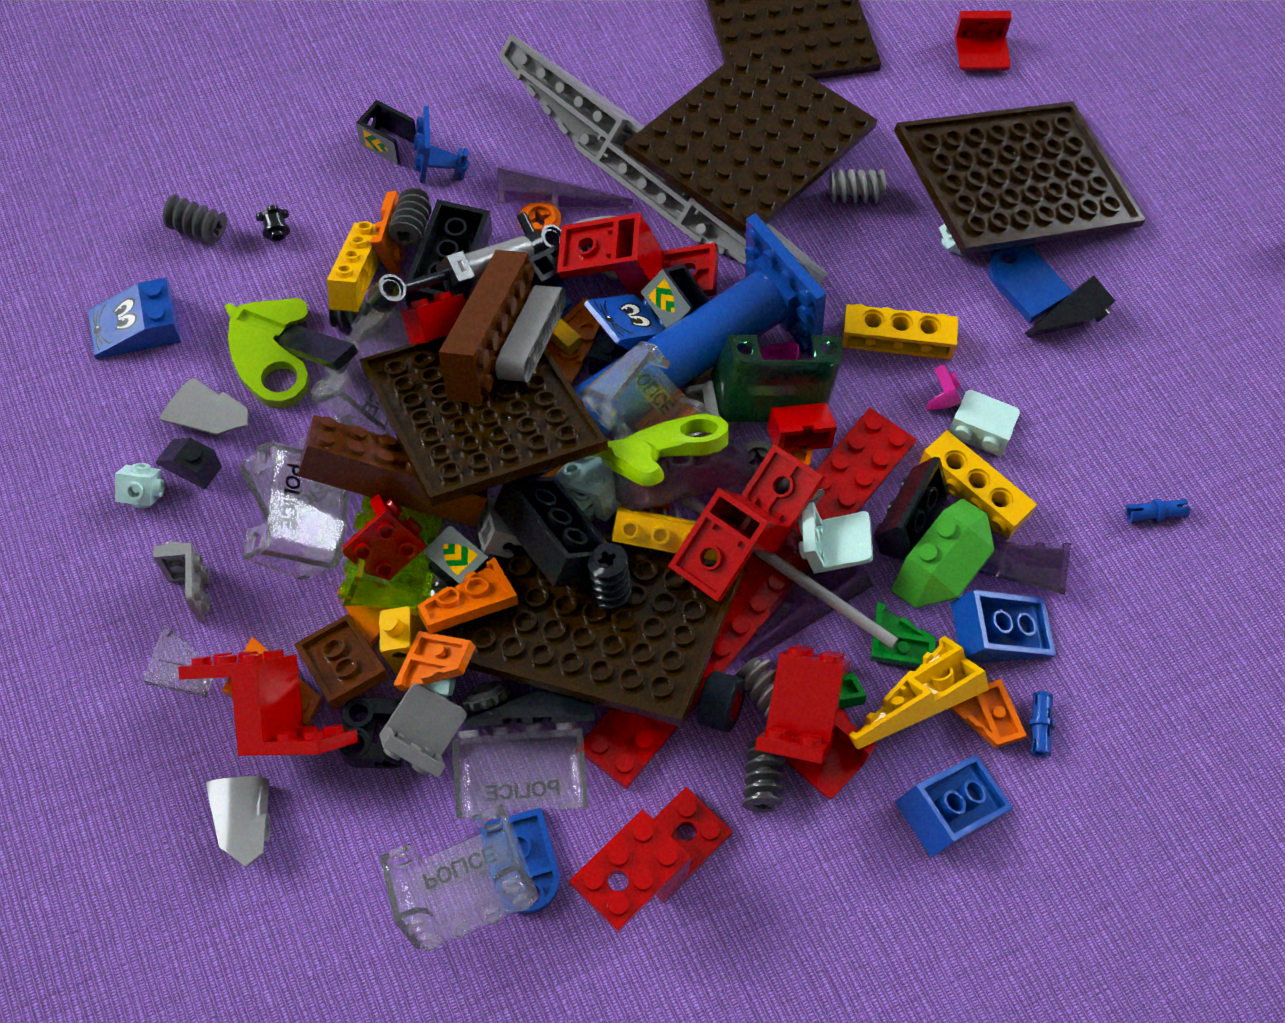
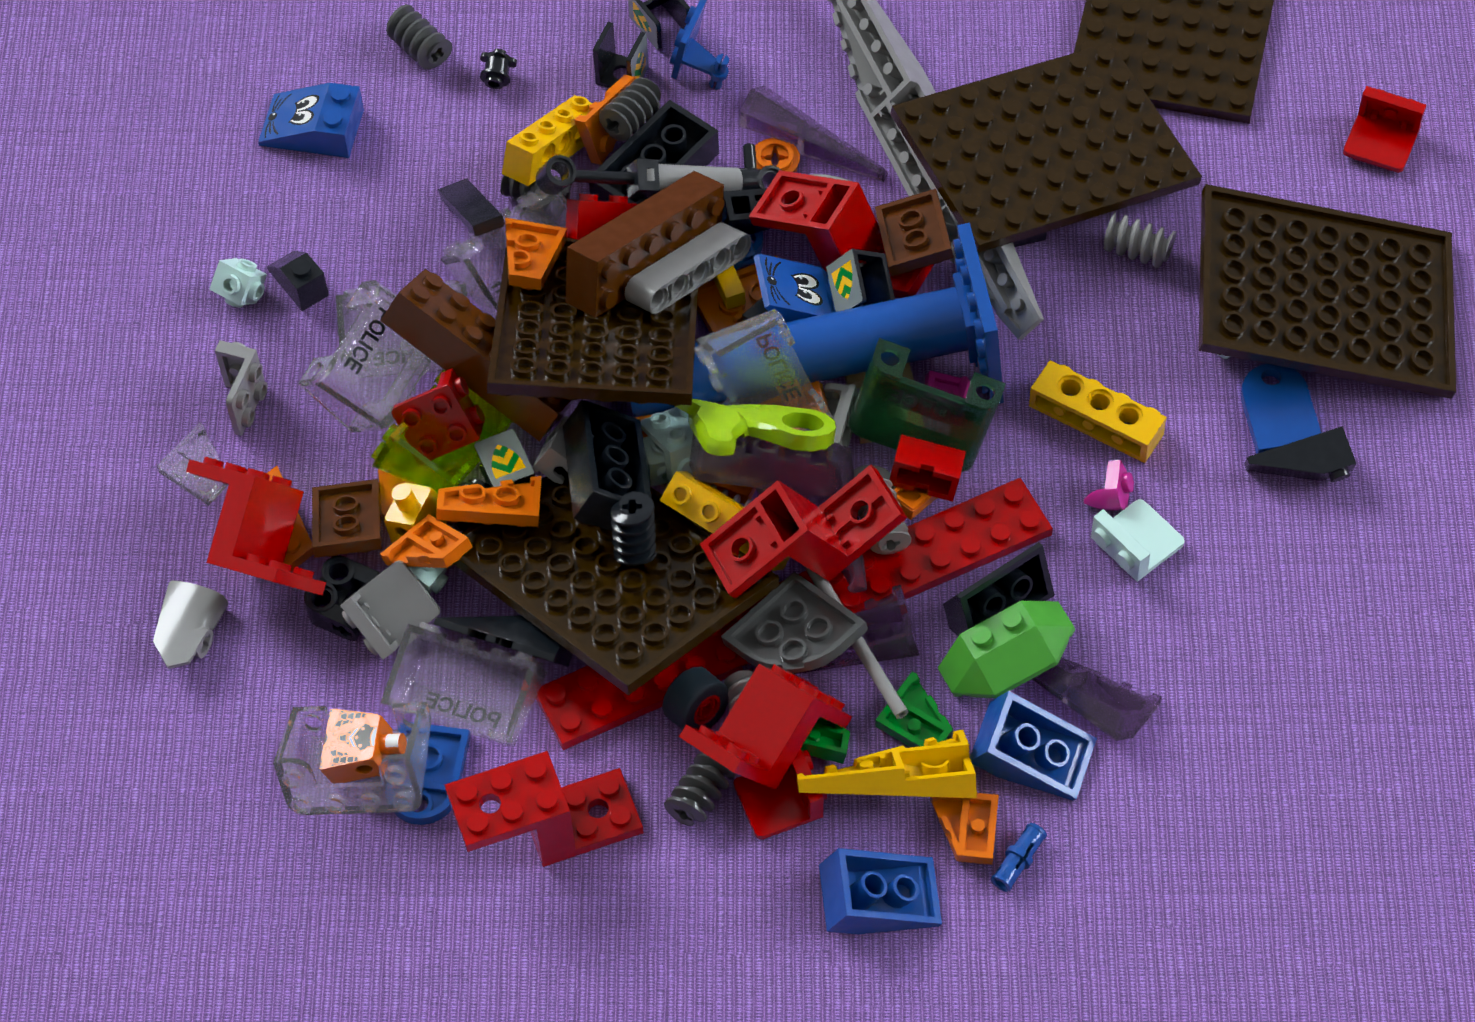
camera: 30 degrees right, 5 degrees down
(205, 410) = (336, 231): light grey panel -> none
(257, 354) = (416, 195): lime animal -> none
(365, 185) = (607, 61): none -> black piece
(393, 367) = (532, 251): none -> orange wing
(457, 867) = (357, 745): none -> orange torso
(485, 695) = (468, 605): dark grey gear -> none
(694, 238) = (914, 232): none -> reddish brown plate
(775, 607) = (795, 628): none -> dark grey plate
(836, 540) = (890, 591): light aqua bracket -> none
(993, 486) = (1076, 551): yellow brick -> none
(1157, 510) = (1277, 699): blue pin -> none

